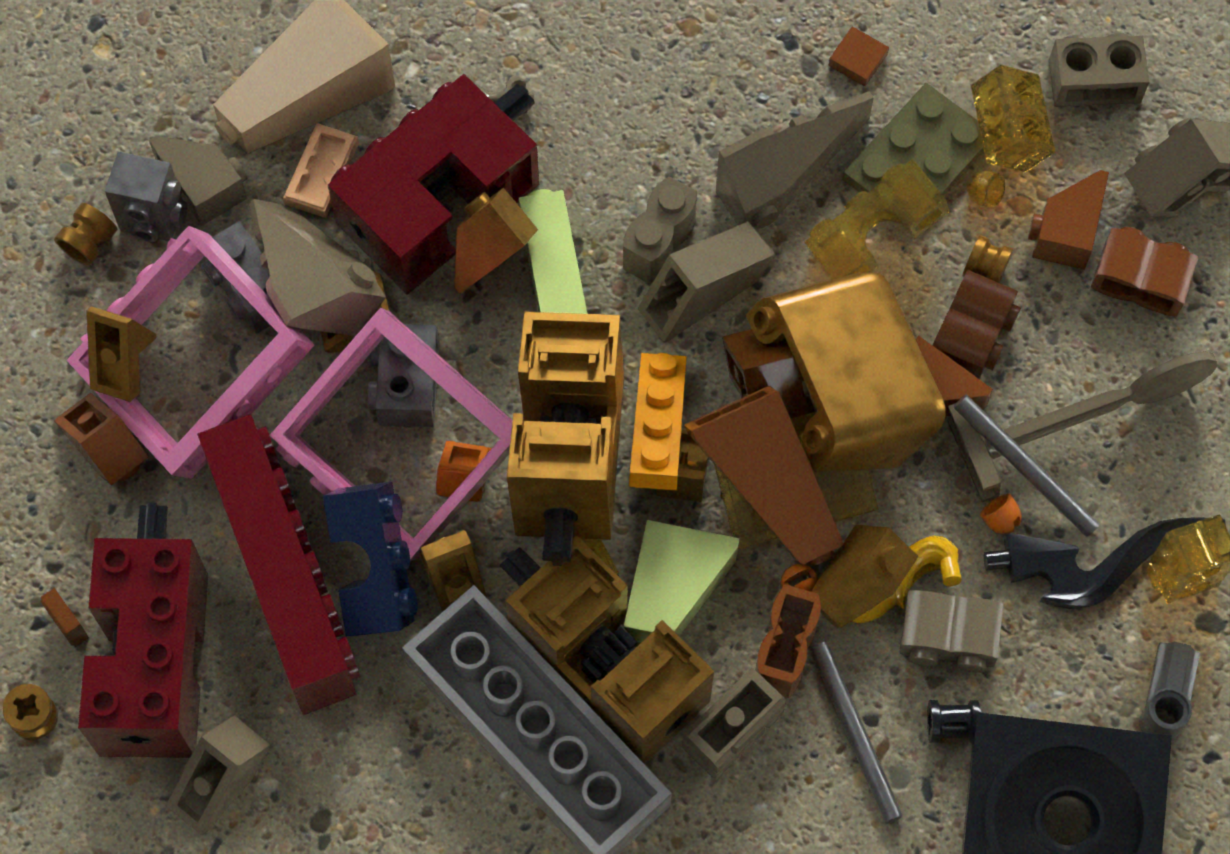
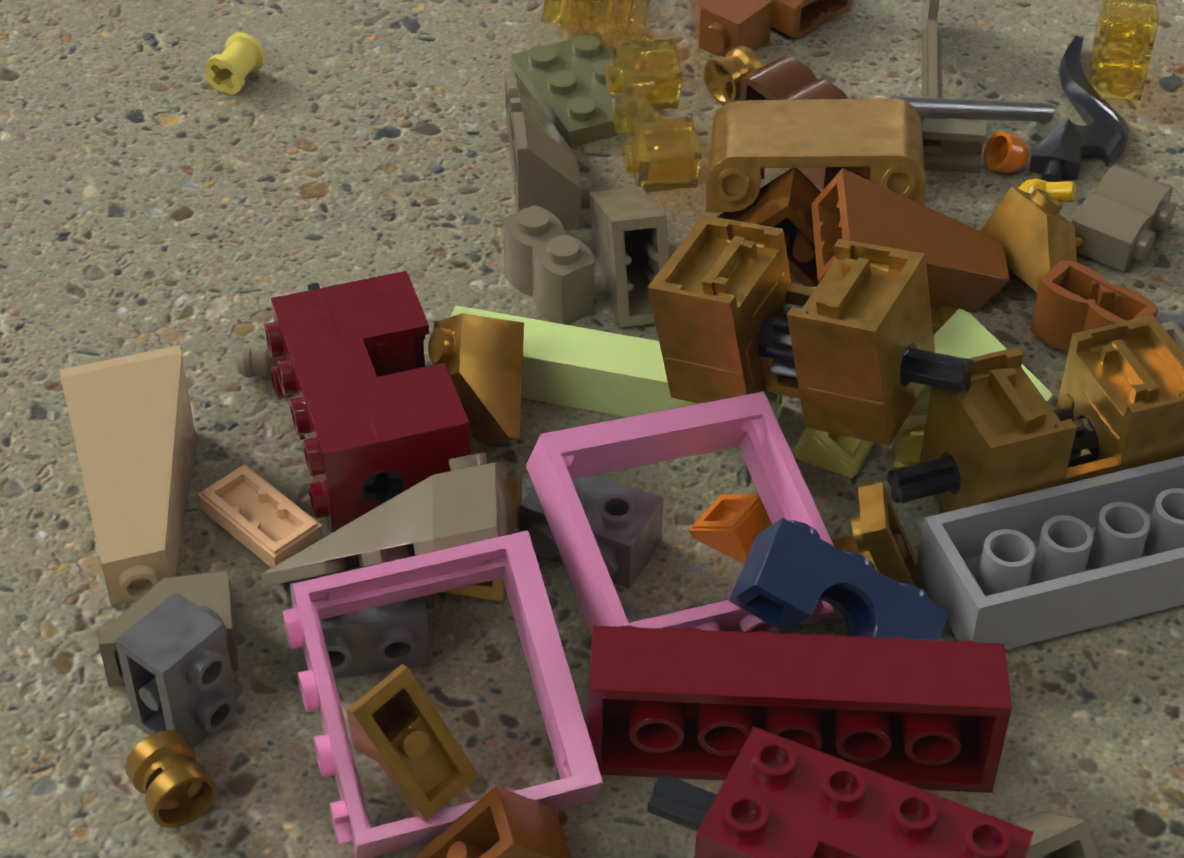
camera: 65 degrees left, 25 degrees down
(796, 571) = (1004, 308): orange hinge -> none
(858, 56) = (446, 89): dark orange tile -> none

